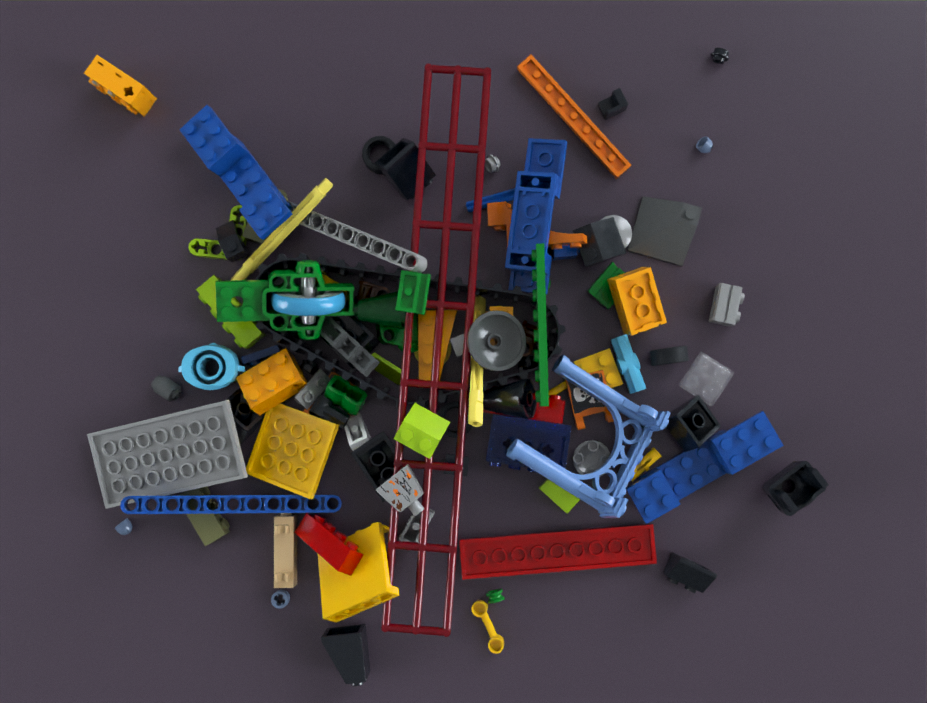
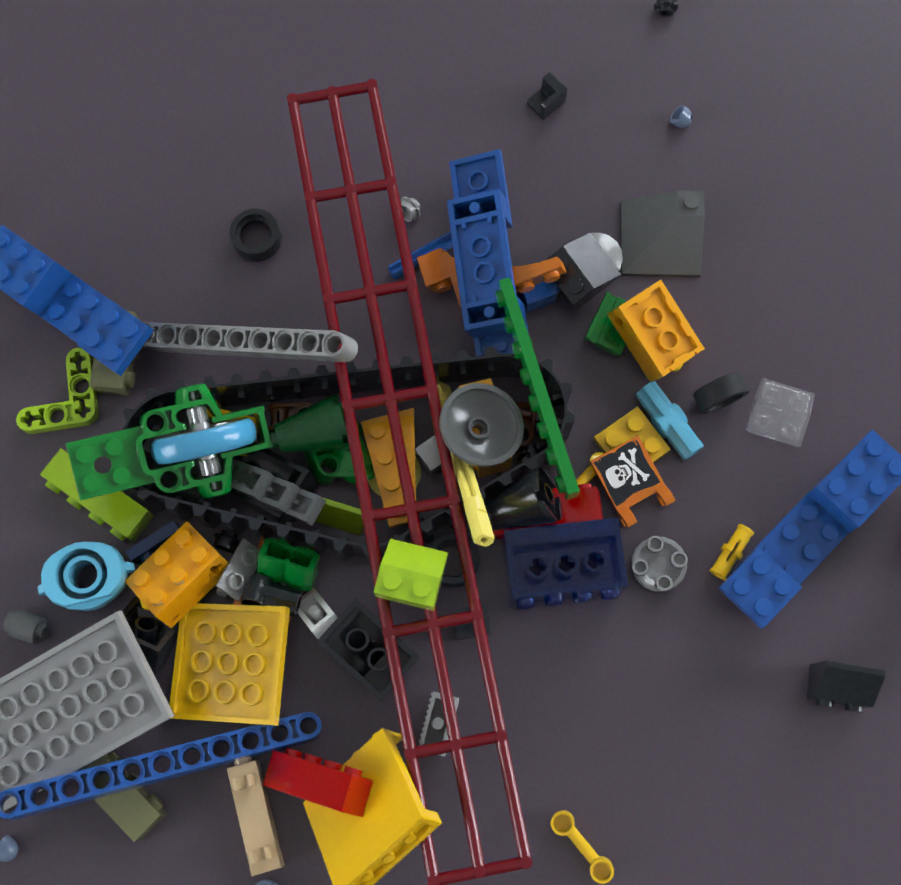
camera: 25 degrees left, 10 degrees down
(231, 242) = (77, 398): black slope -> none
(283, 230) = (149, 355): light yellow piece -> none
(400, 168) = (289, 242): black slope -> none
(403, 491) = (406, 667): light grey torso -> none
(413, 292) = (348, 388): green plate -> none
(495, 596) = (579, 798): green bush -> none
(557, 551) = (649, 708): red plate -> none
(558, 495) = (627, 624): lime slope -> none
(573, 116) = (501, 124): orange plate -> none
(643, 419) = (714, 486): medium blue arch -> none
(692, 424) = (780, 477): black slope -> none
(726, 305) = (775, 308): light grey brick -> none

